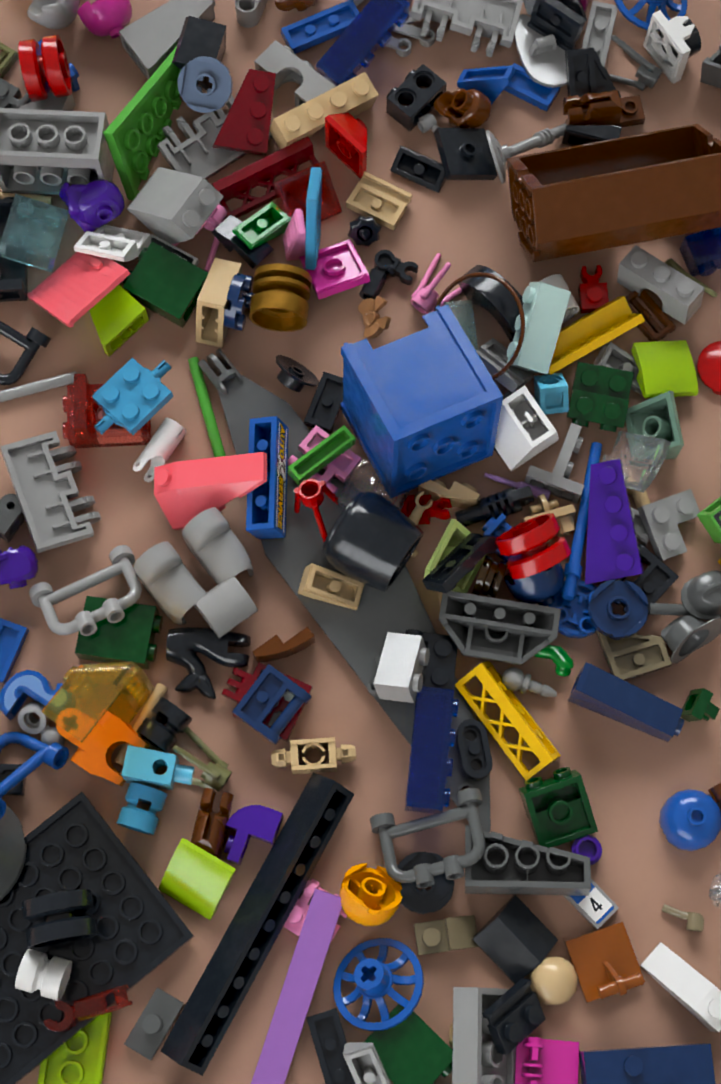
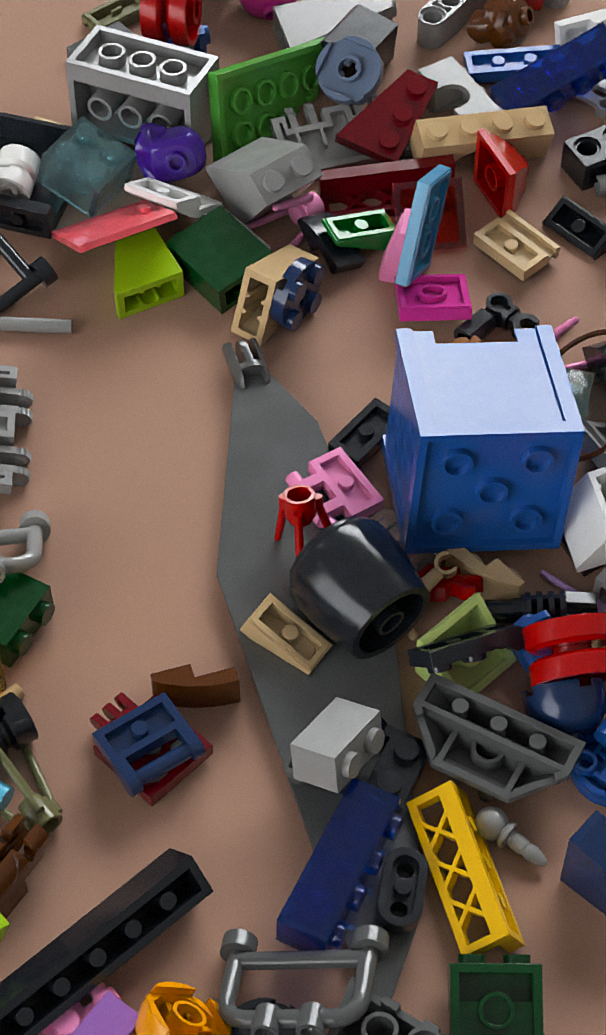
camera: 20 degrees right, 20 degrees down
(82, 417) = (87, 369): clear red brick -> none
(132, 396) = (124, 351): dark azure plate -> none
(160, 447) = (139, 422): white piece -> none
(186, 642) = (109, 660): black piece -> none
(201, 484) = (167, 465): coral wedge -> none
(206, 407) = (212, 406): bright green bar -> none
(221, 556) = (153, 544): light grey piece -> none
(250, 822) = (58, 887): dark purple brick -> none
(269, 501) = (252, 482): blue brick -> none
(280, 297) = (351, 303): pearl gold wheel -> none
(282, 758) = (169, 814): tan piece -> none
(294, 374) = (335, 391): black piece -> none
(321, 455) = (336, 472): bright green piece -> none
(364, 230) = (485, 268): black piece -> none
(487, 575) = (504, 682): dark brown wheel -> none
(559, 657) = (562, 811): green arm -> none

